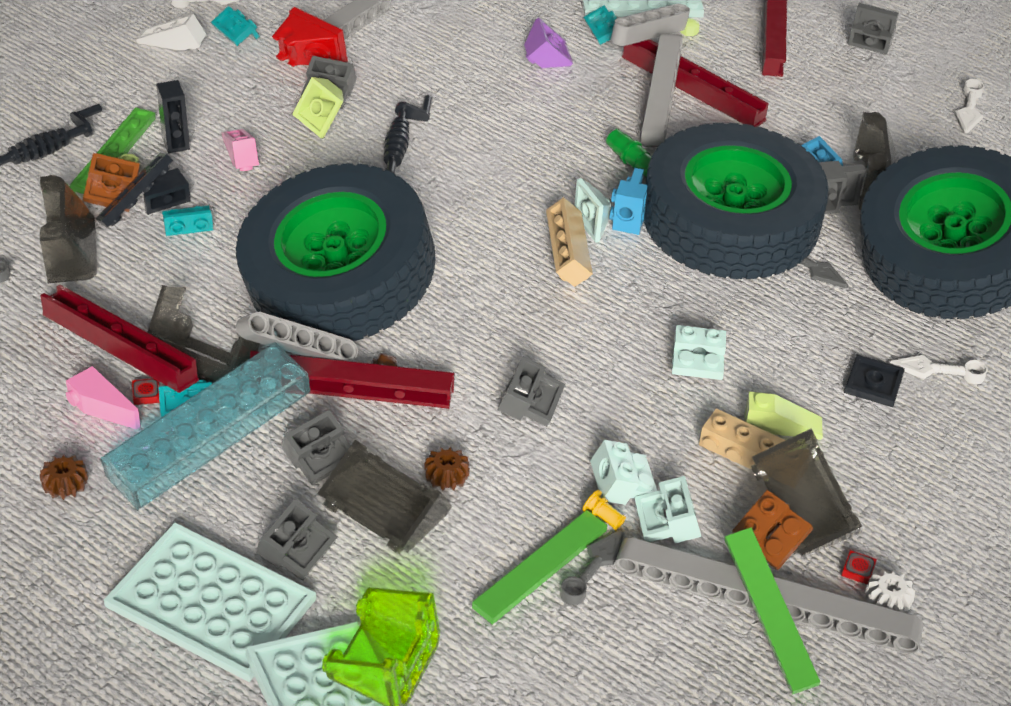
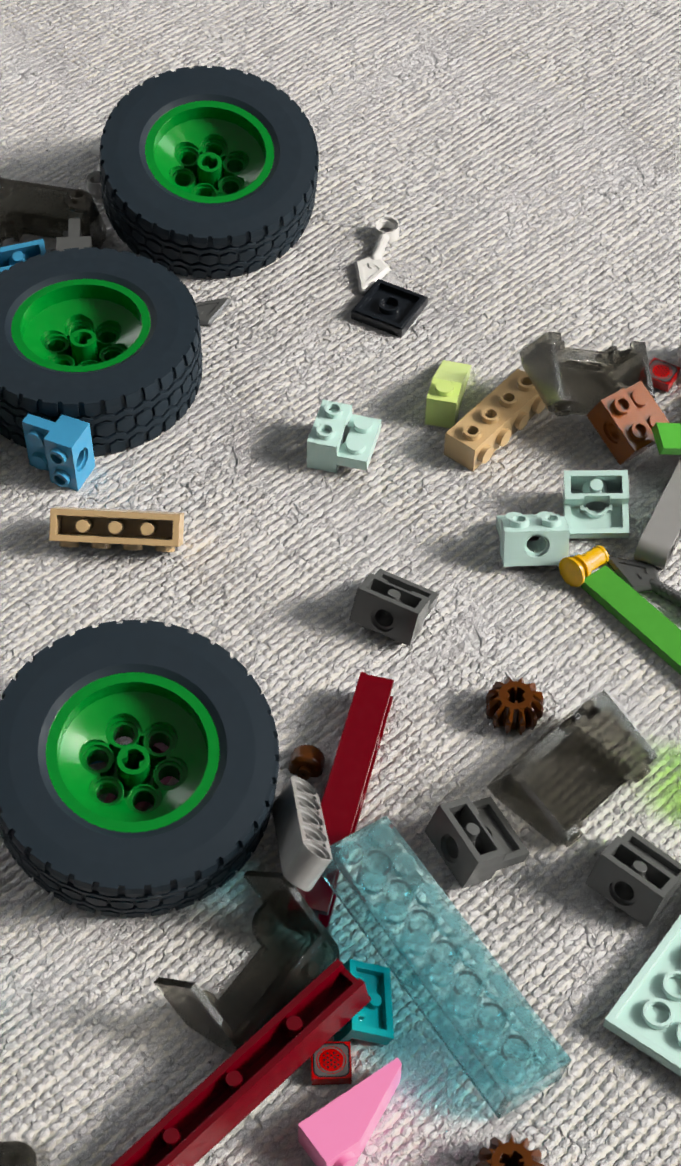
camera: 80 degrees left, 5 degrees up
(594, 208) = (63, 488): light aqua slope -> none

